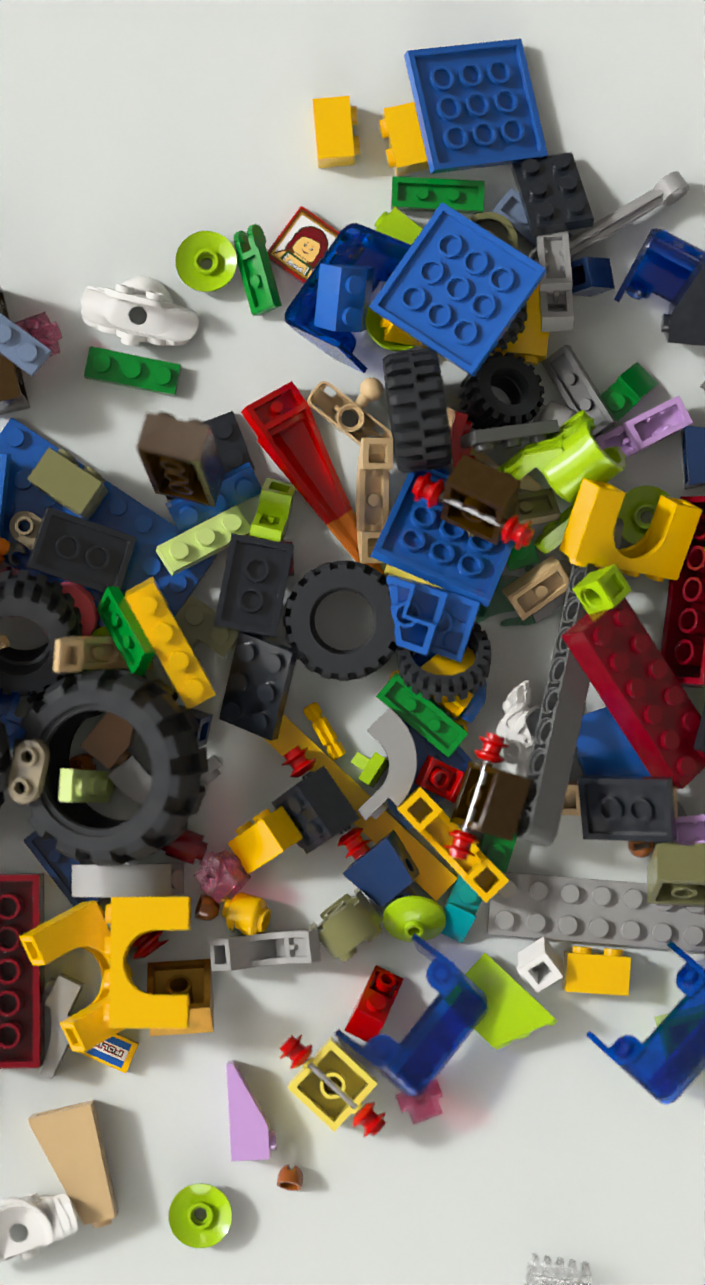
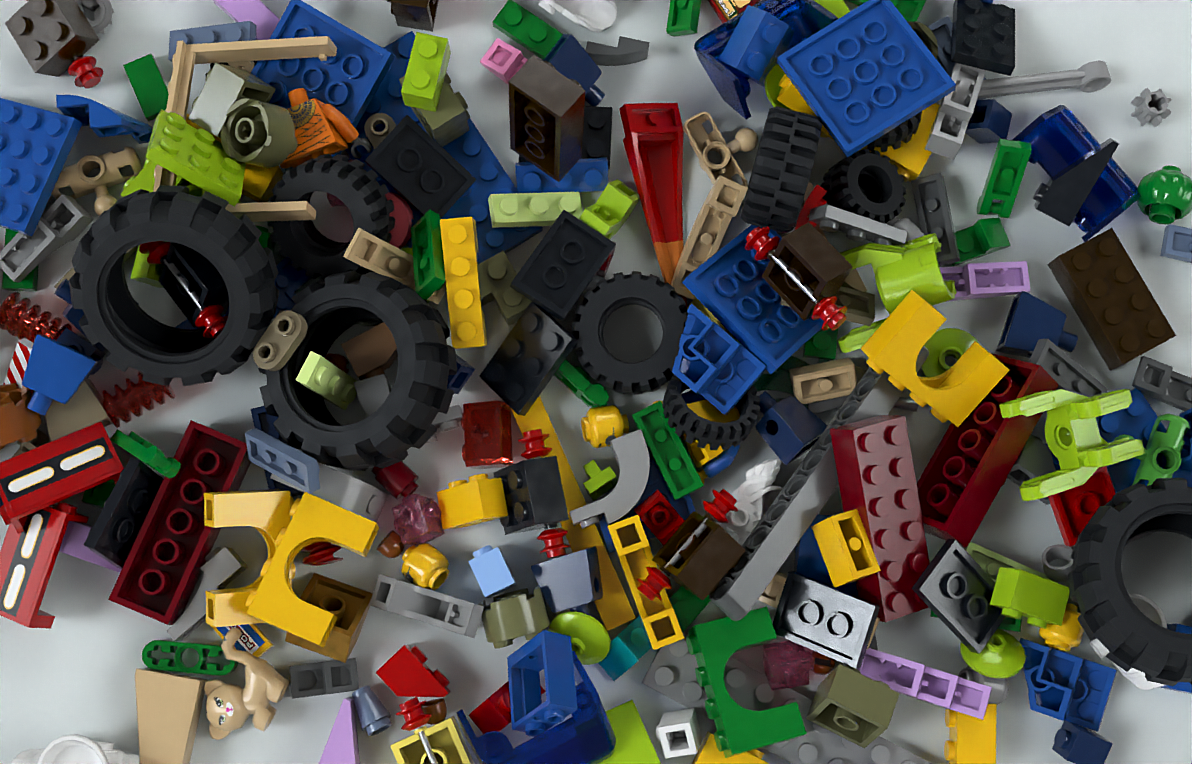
camera: 20 degrees right, 5 degrees down
(50, 1103) = (166, 664): none -> green beam
(51, 464) = (426, 71): none -> lime brick
(78, 877) = (283, 460): none -> sand blue plate
(120, 410) = (503, 60): none -> bright pink slope
(127, 1113) = (231, 705): none -> tan animal
(179, 394) = (575, 63): none -> dark blue torso
(198, 1053) = (323, 678): none -> dark grey slope
(222, 352) = (626, 52): none -> dark grey slope
(254, 1064) = (370, 711): none -> sand blue cone
(265, 778) = (496, 447): none -> clear red brick
(277, 1018) = (410, 676): none -> red slope
(310, 893) = (491, 571): none -> light blue brick
(311, 685) = (577, 382): none -> green hinge
(313, 1036) = (438, 710): none -> dark orange hinge
(324, 731) = (570, 429): yellow axle -> none
(354, 716) = (603, 425): none -> yellow head
(398, 944) = (554, 655): none -> blue window
(523, 645) = (788, 427): none -> dark blue torso
(589, 938) = (737, 727): none -> green arch
(602, 589) = (886, 401): lime brick -> none
(611, 862) = (786, 665): none -> clear pink brick
(620, 737) = (845, 548): none -> yellow brick
(626, 326) = (1004, 178): none -> green plate

